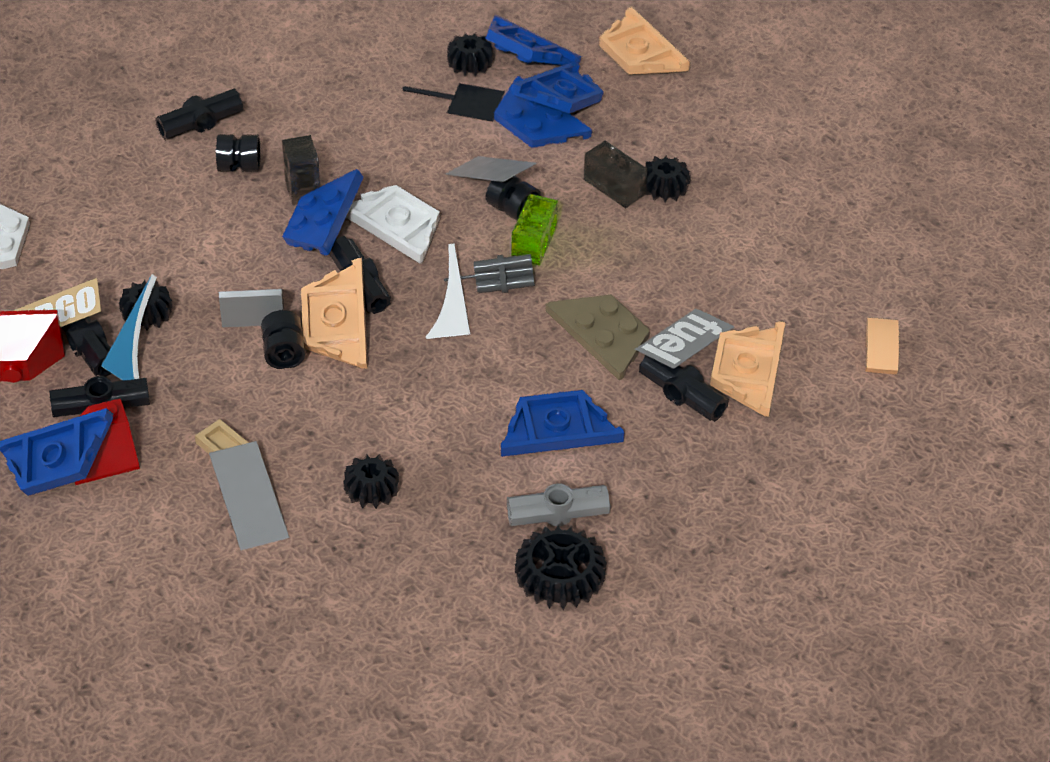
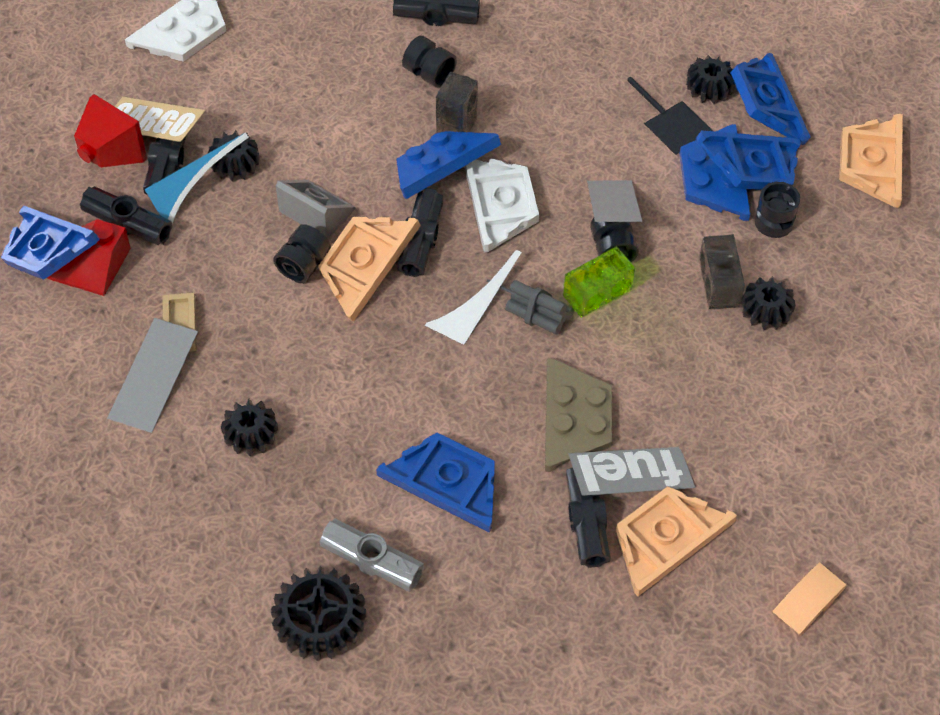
camera: 40 degrees right, 10 degrees up
(611, 113) = (777, 209): none -> black wheel

